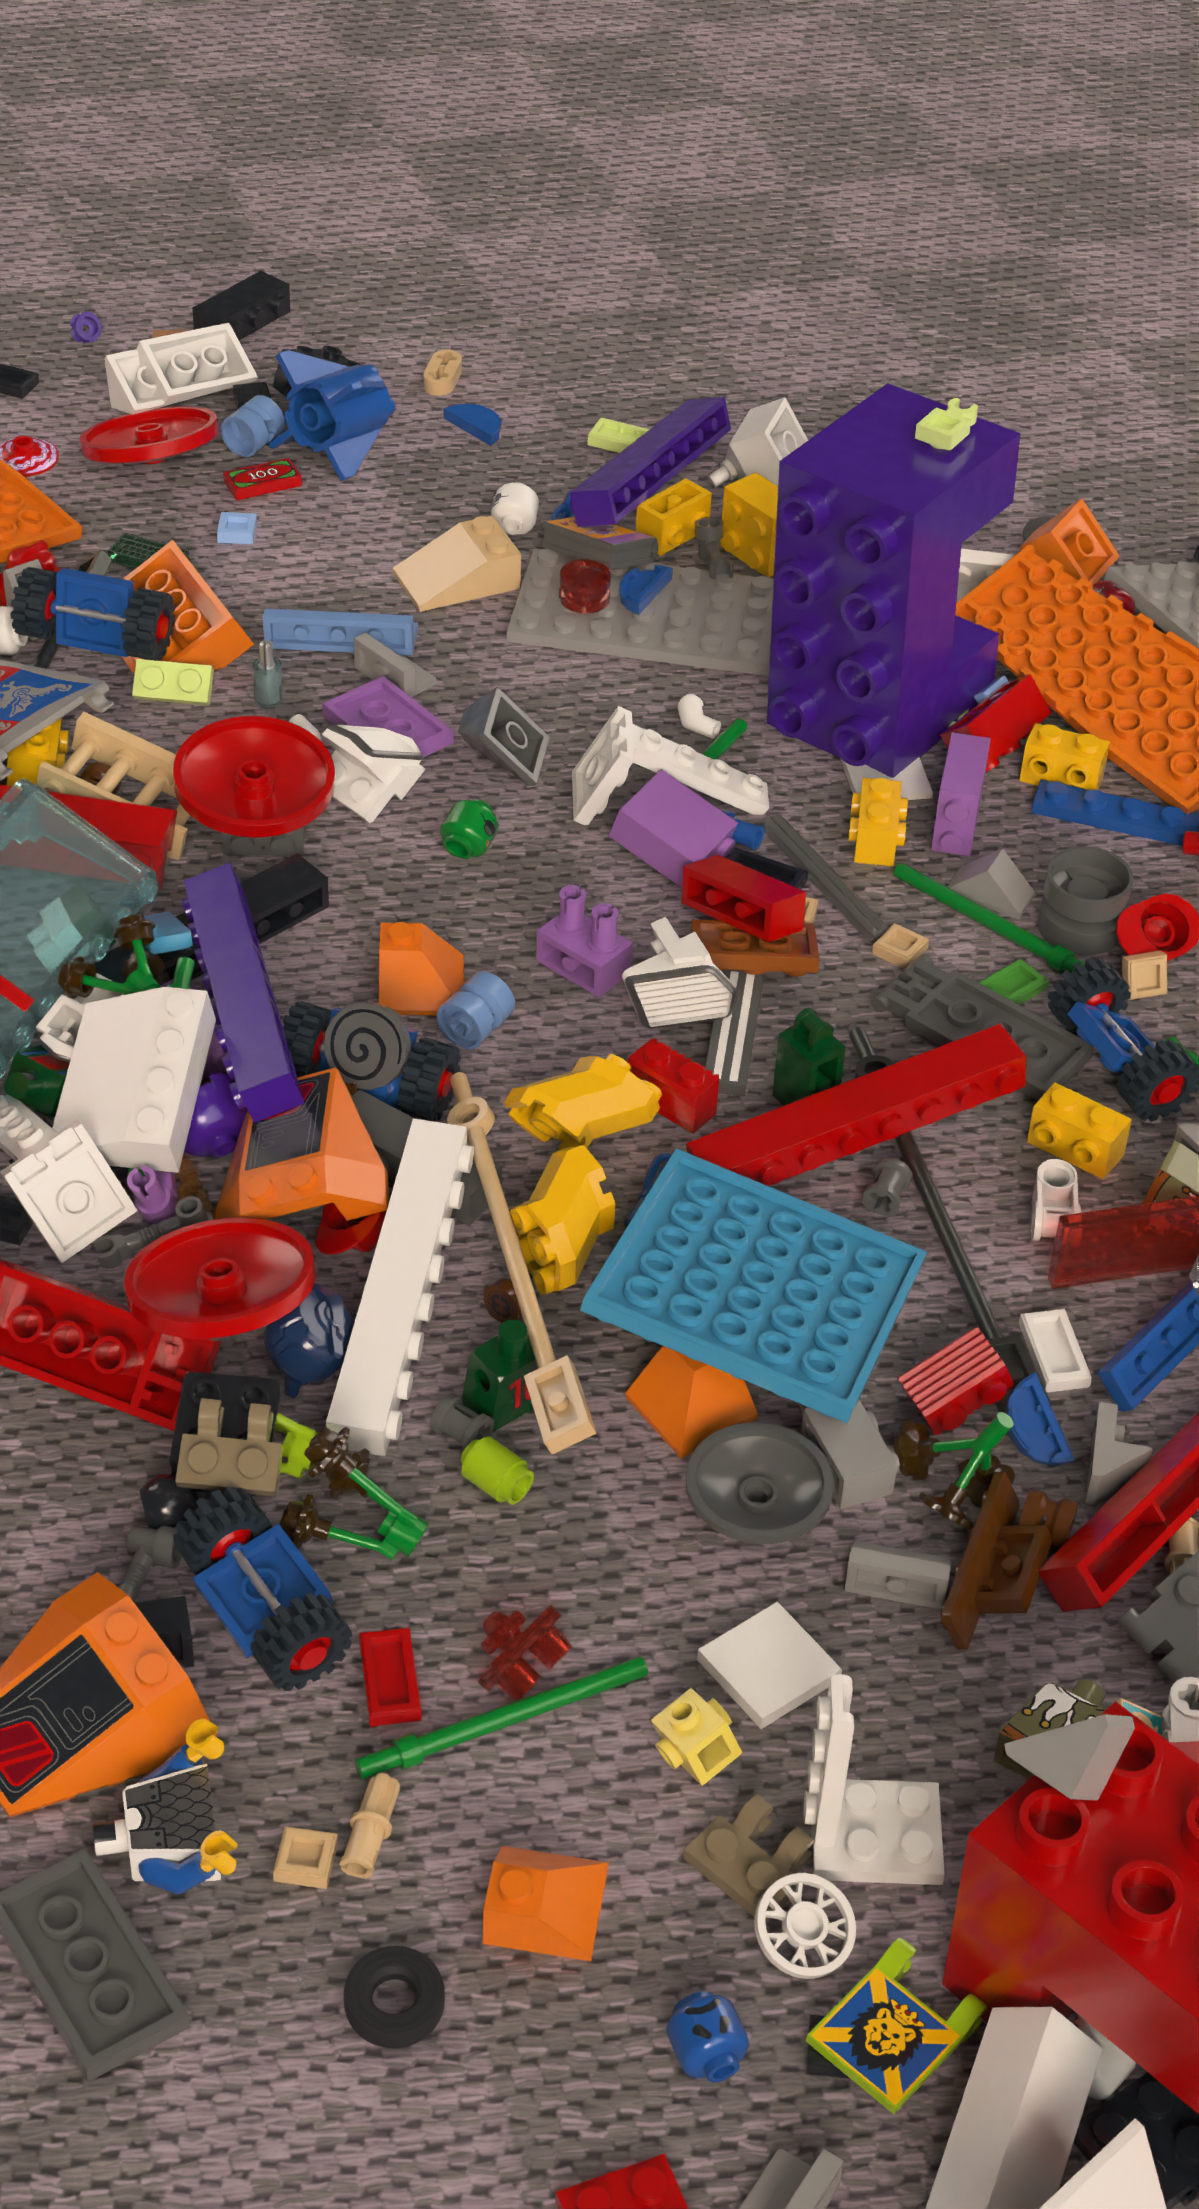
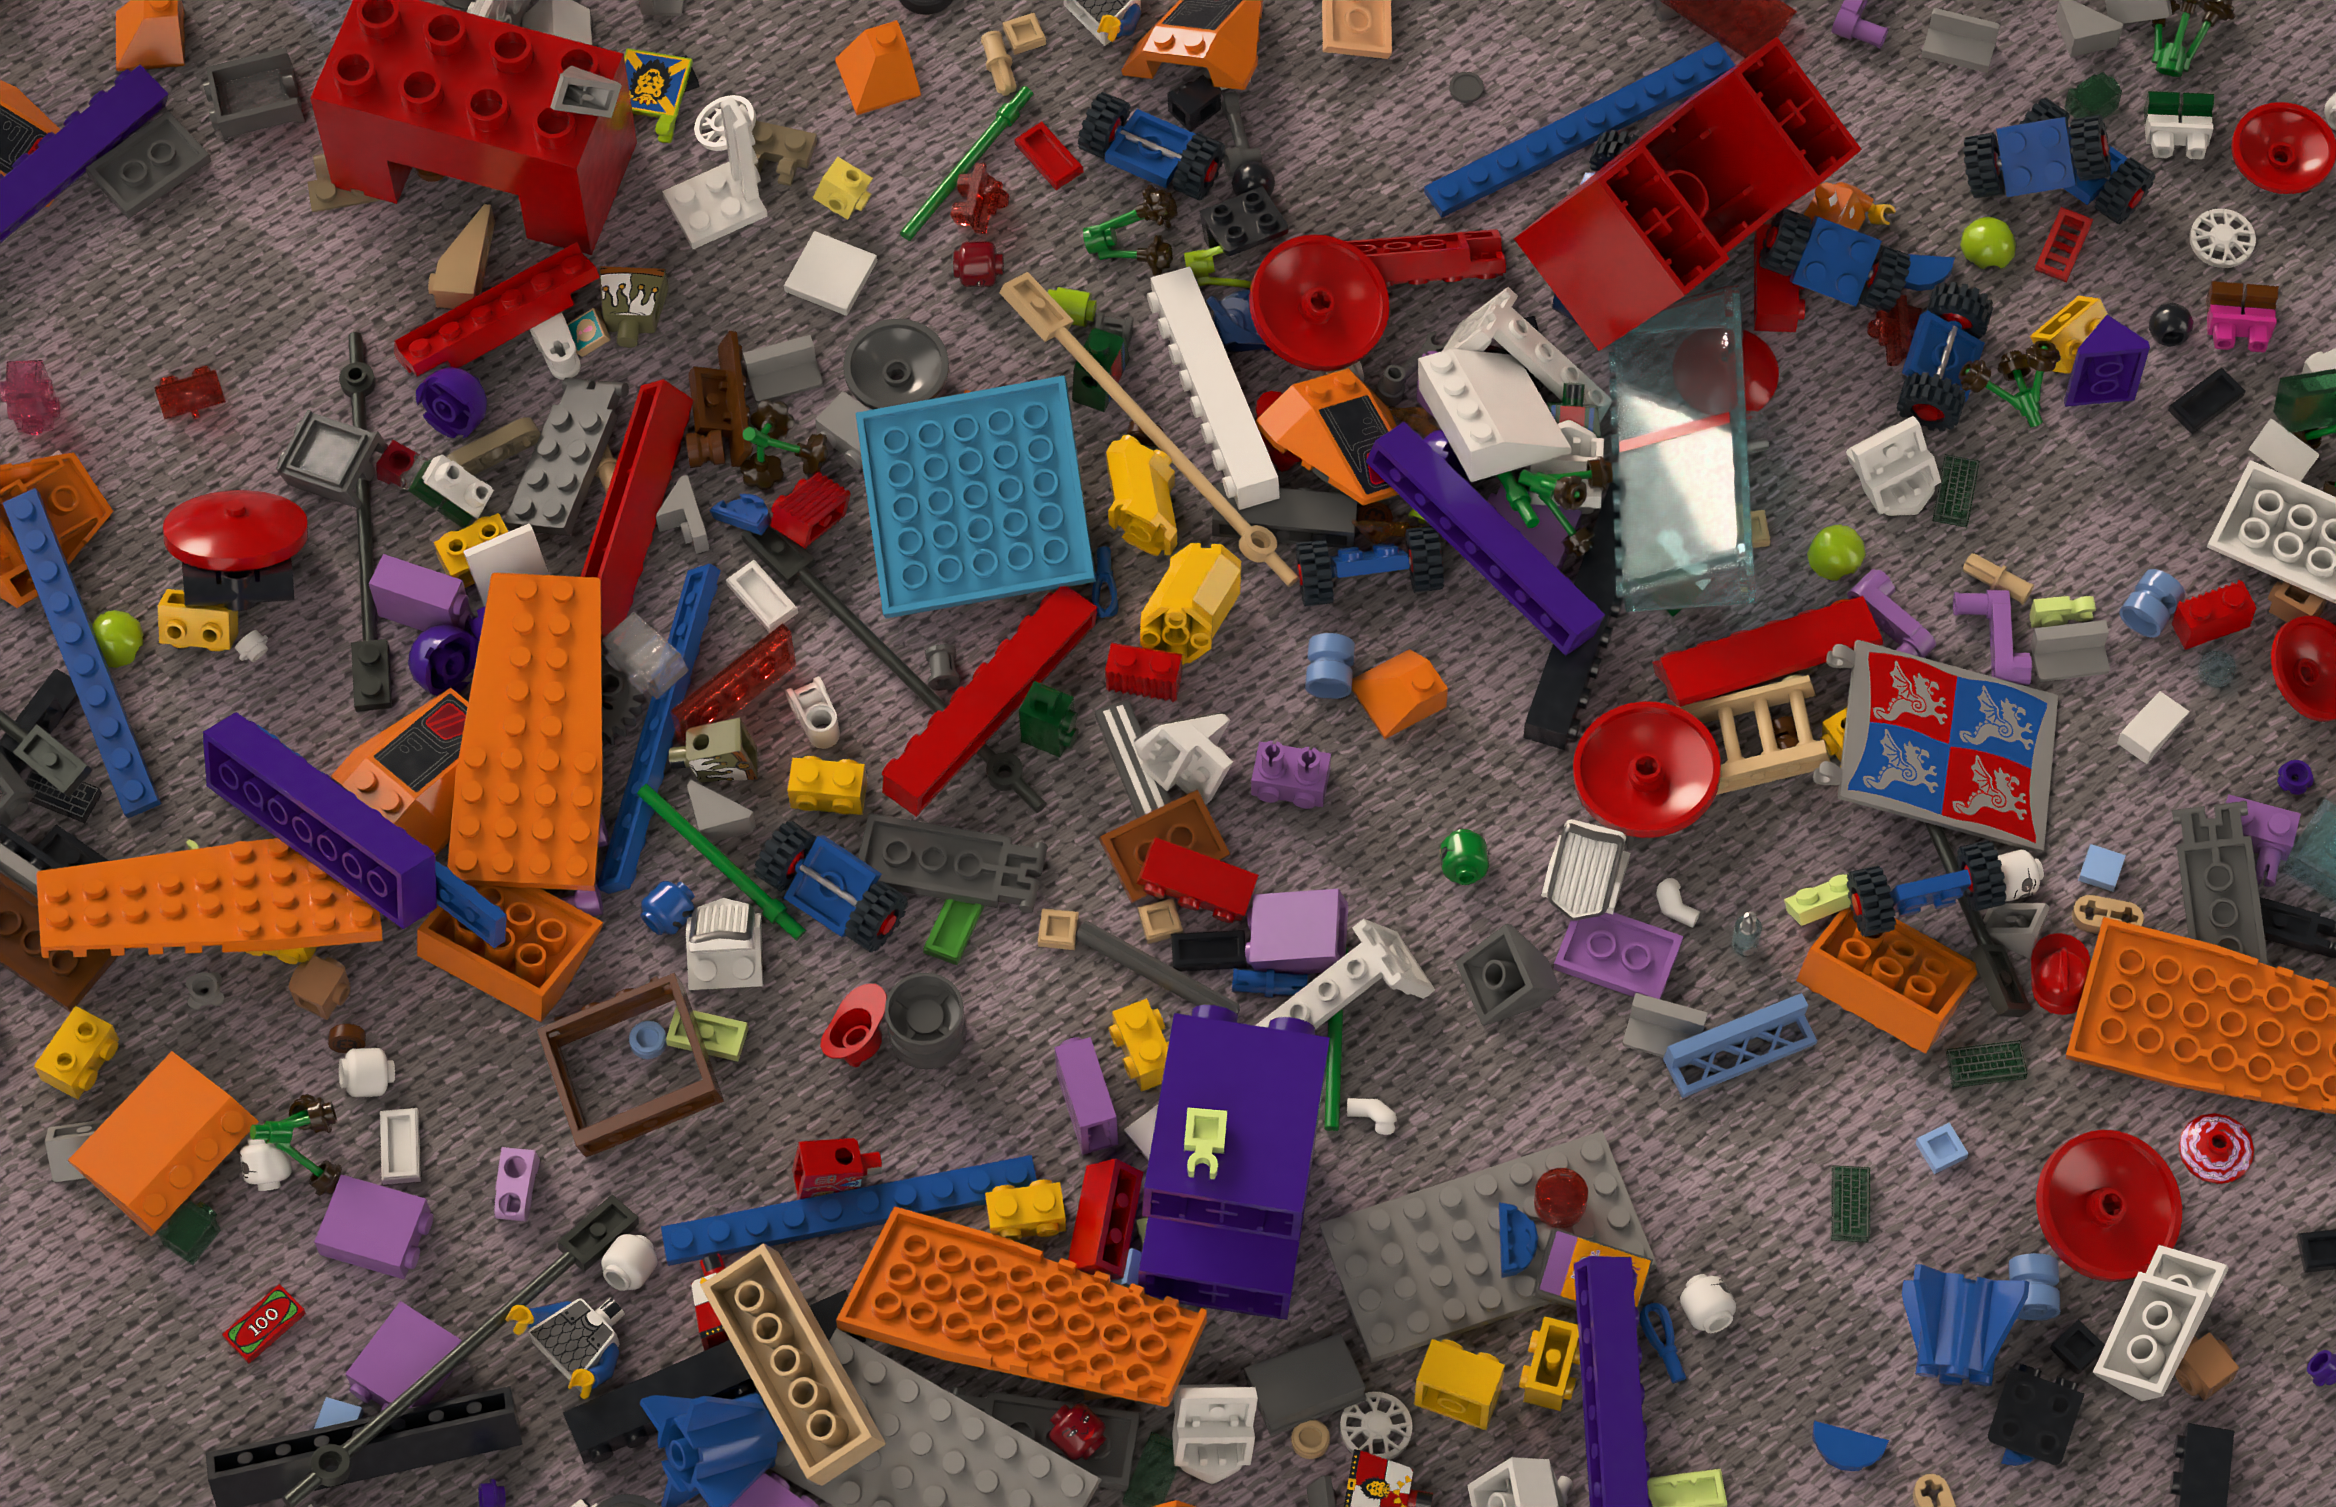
camera: 155 degrees right, 20 degrees up
(168, 933) = (1588, 571): dark azure tile -> none
(221, 1462) = (1219, 190): dark tan plate -> none
(262, 479) = (1975, 1234): red tile -> none
(342, 528) = (1850, 1204): none -> clear green tile
(367, 1044) = (1362, 542): dark grey tile -> none
(461, 565) = (1700, 1194): tan slope -> none
(578, 1565) = (977, 264): none -> dark red head
(707, 2036) = (746, 40): blue head -> none
(709, 533) = (1468, 1313): dark grey brick -> none
(994, 884) = (1018, 1031): light grey slope -> none
(1057, 956) = (1011, 997): green bar -> none
(1145, 974) = (847, 983): tan tile -> none

